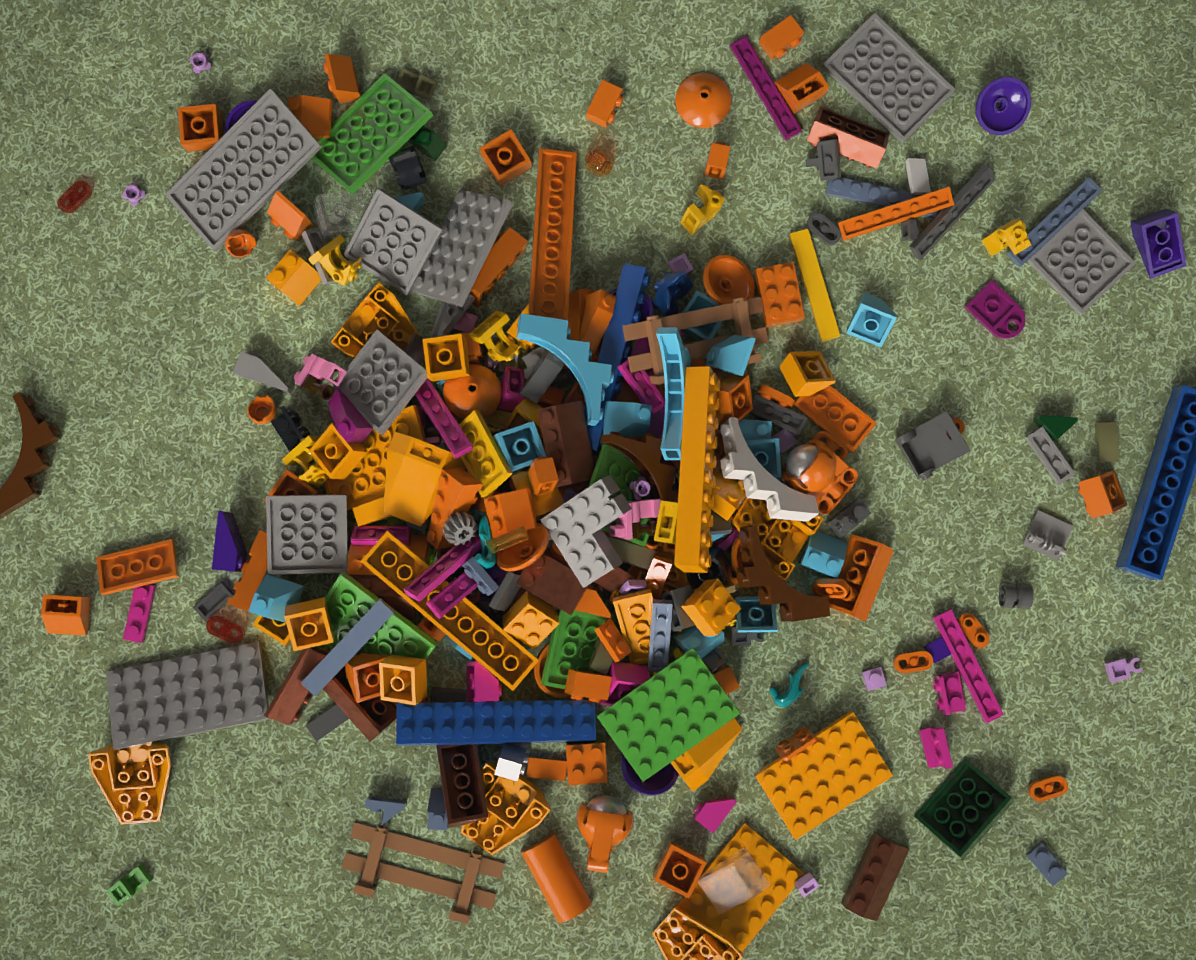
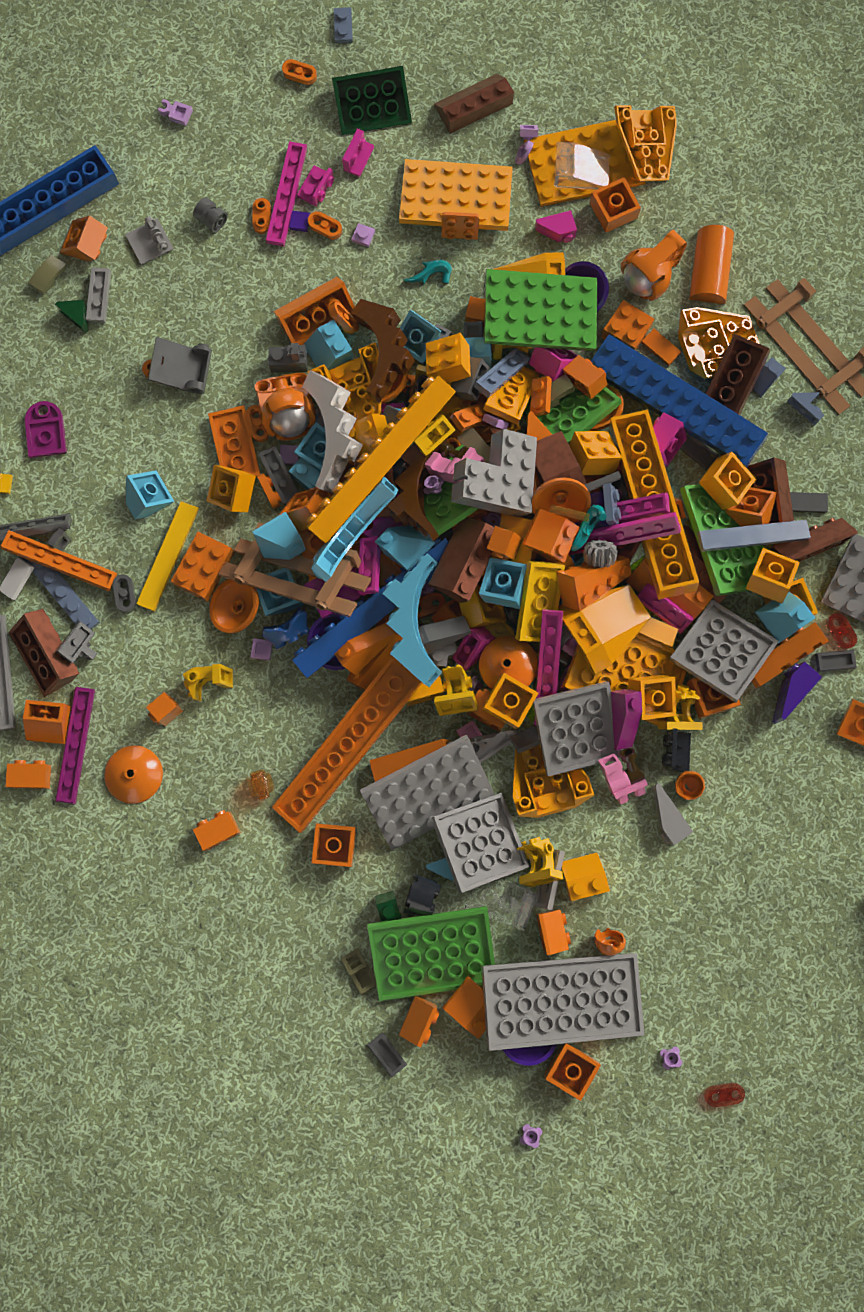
camera: 140 degrees left, 5 degrees down
(350, 41) = (387, 1054): none -> dark grey tile
(512, 761) = (686, 364): light grey hinge -> none
(795, 860) = (523, 152): none -> lavender tile

